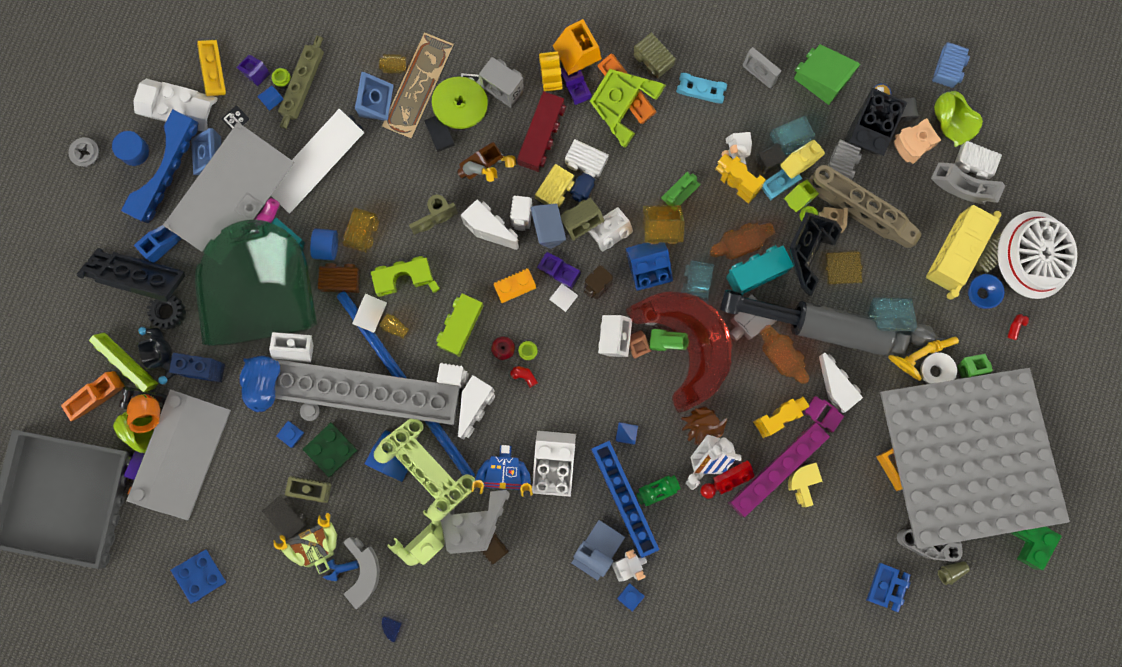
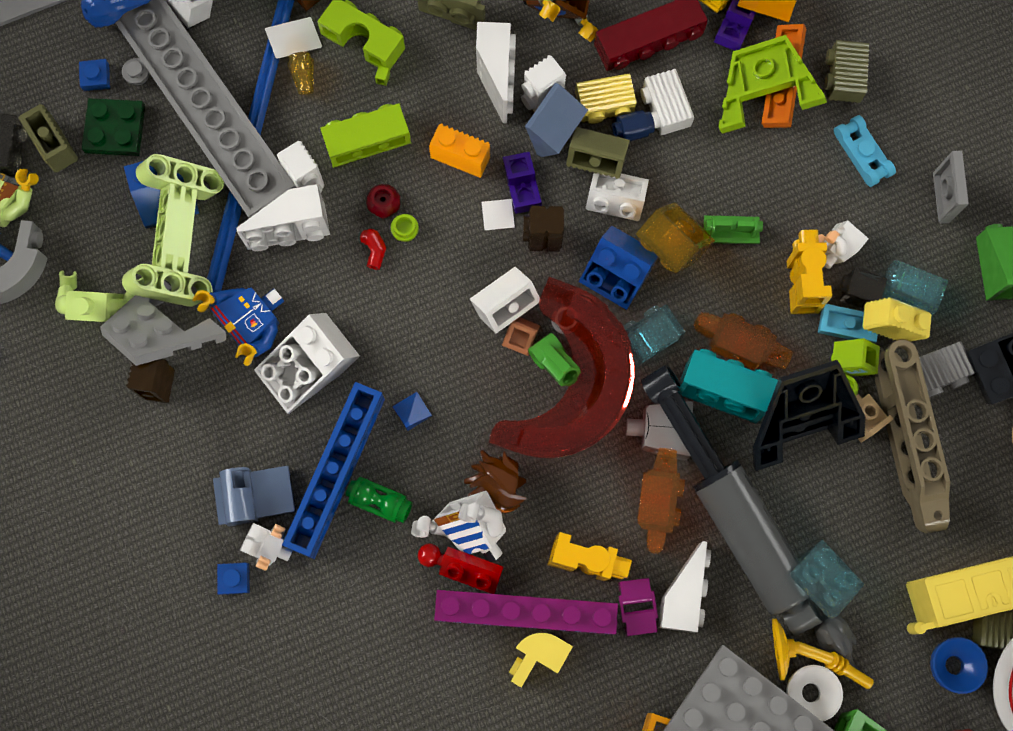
camera: 45 degrees right, 5 degrees down
(844, 268) = (824, 481): clear yellow piece -> none

